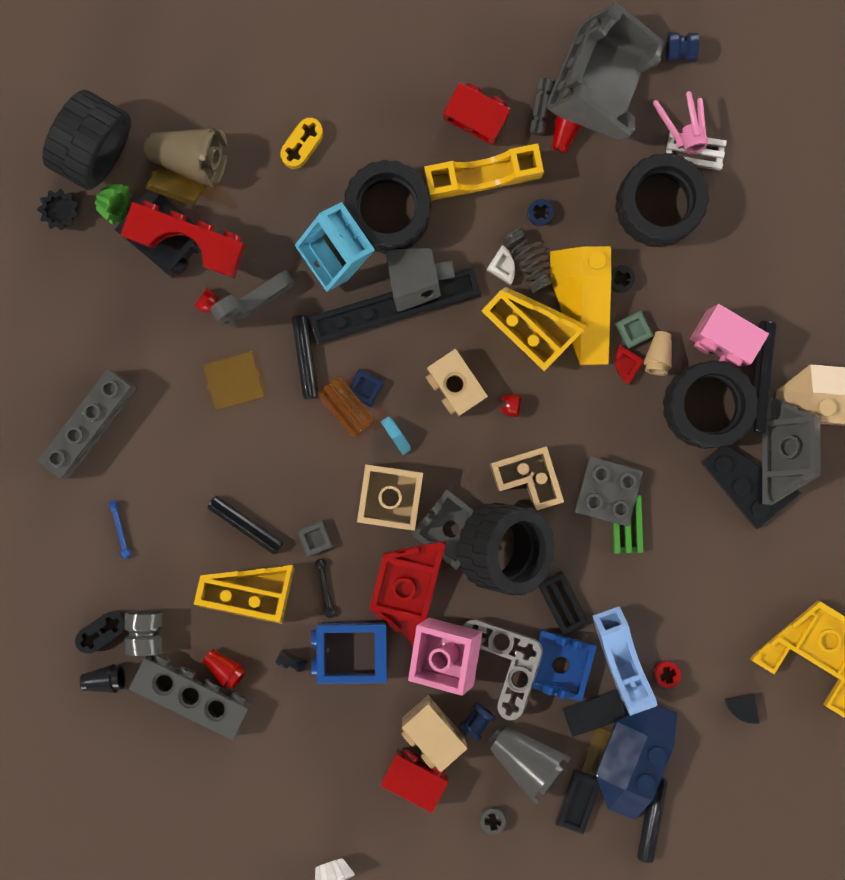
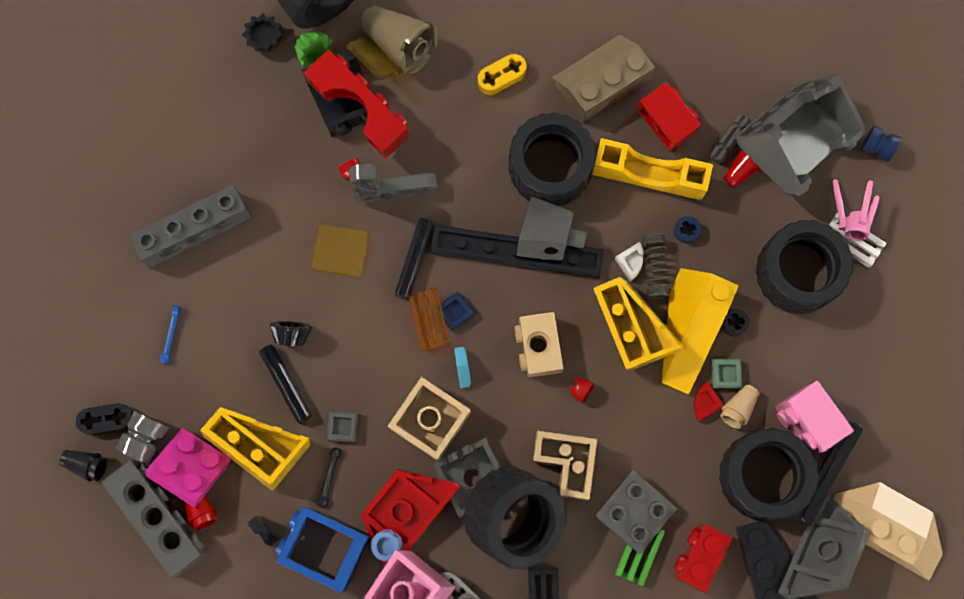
camera: 25 degrees right, 10 degrees down
(197, 639) = (188, 467): none -> dark pink plate
(227, 478) = (290, 332): none -> black piece
(345, 237) = (502, 165): medium azure window -> none
(397, 101) = (604, 76): none -> dark tan slope
(405, 623) = (385, 544): none -> medium blue tile
(683, 504) = (702, 557): none -> red brick

